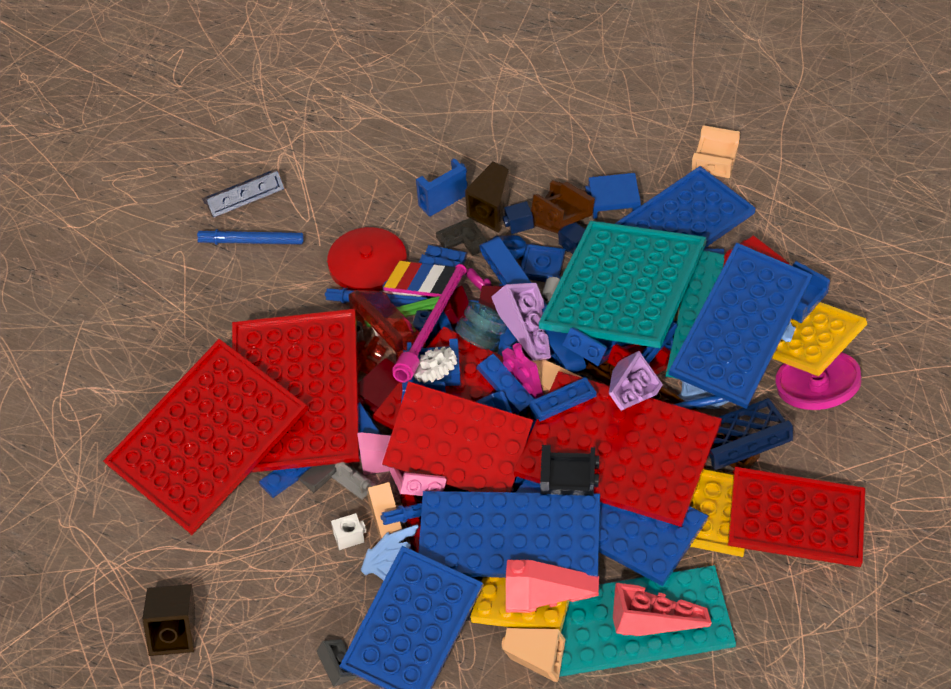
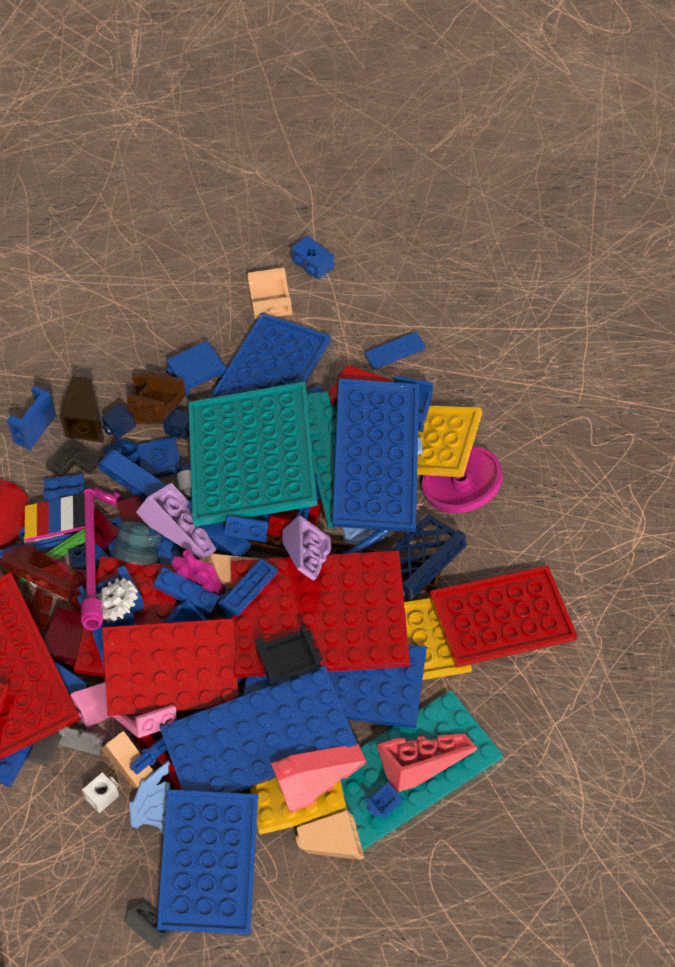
camera: 25 degrees left, 5 degrees up
(599, 637) = (384, 801): none -> blue bracket
(772, 132) = (312, 257): none -> blue brick
(812, 242) = (394, 350): none -> blue tile

